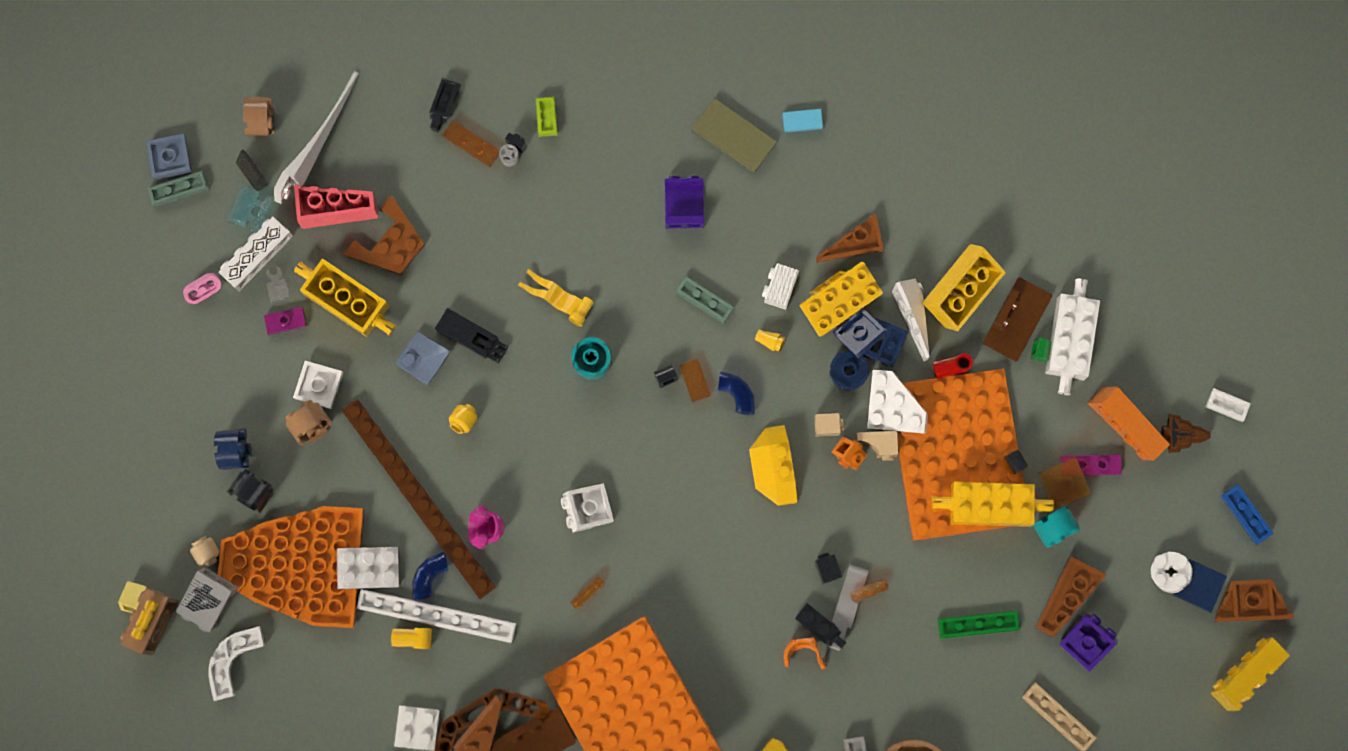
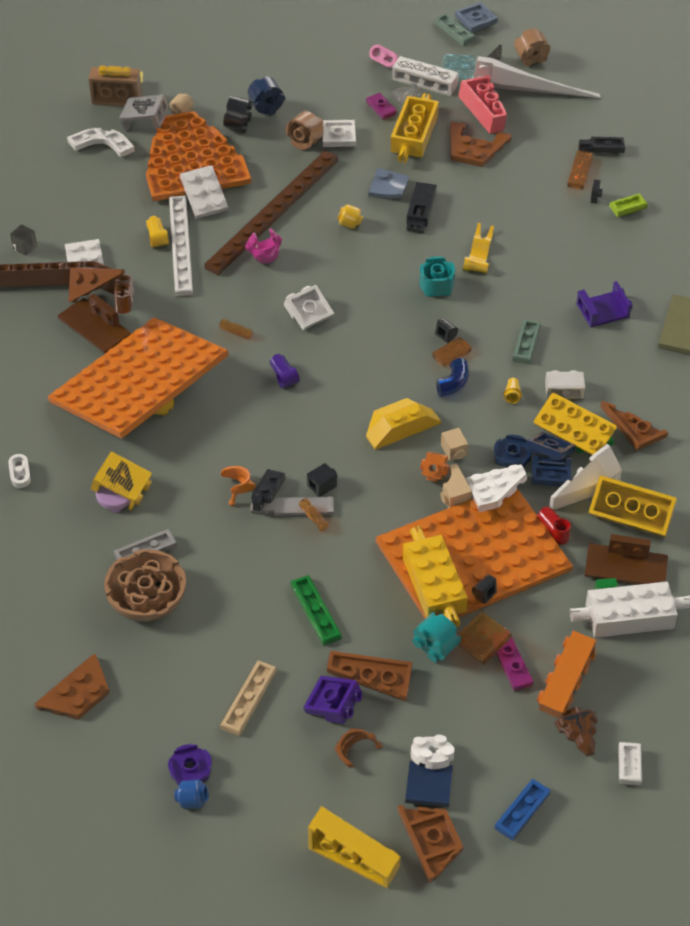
camera: 70 degrees right, 30 degrees down
(425, 575) = (212, 227): clear blue cylinder -> none
(507, 151) = (583, 191): light grey wheel -> none
(674, 560) = (284, 372): none -> dark purple piece
(1137, 648) = (351, 738): none -> dark orange helmet

